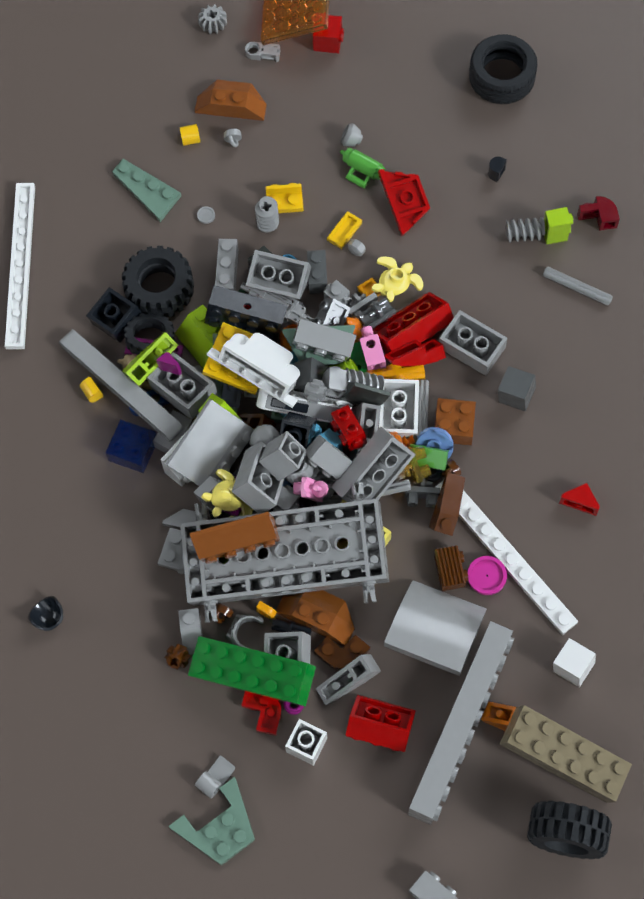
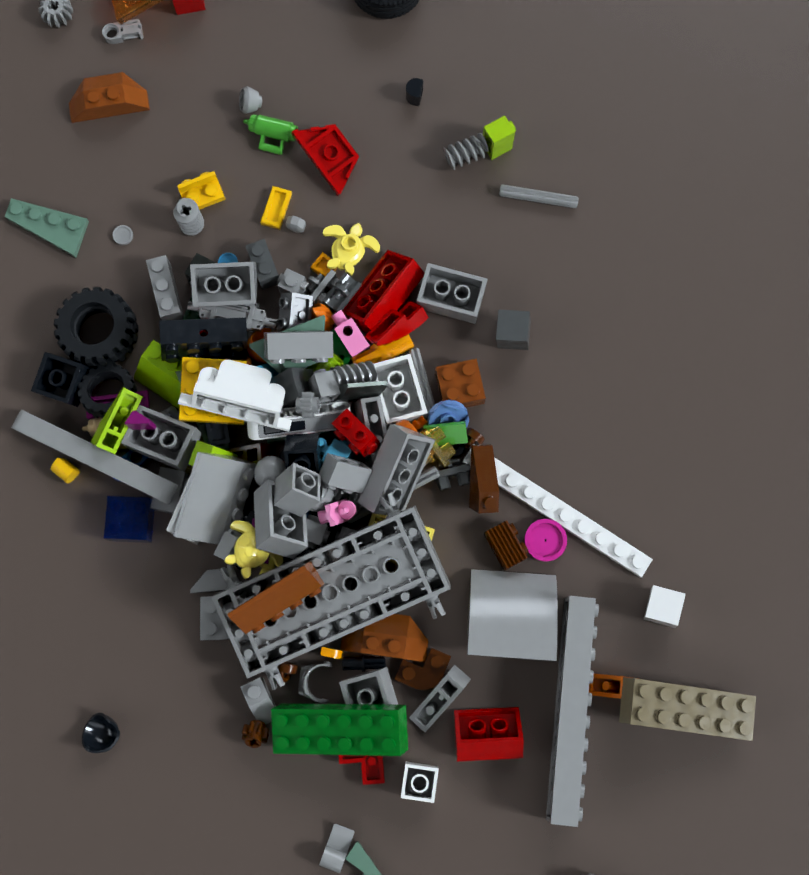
camera: 20 degrees left, 10 degrees up
(190, 134) = (75, 149): yellow brick -> none
(233, 136) = (122, 138): light grey tile -> none
(569, 830) = (719, 791): black tyre -> none
(581, 499) = (616, 428): red slope -> none
(603, 210) = (538, 105): dark red brick -> none

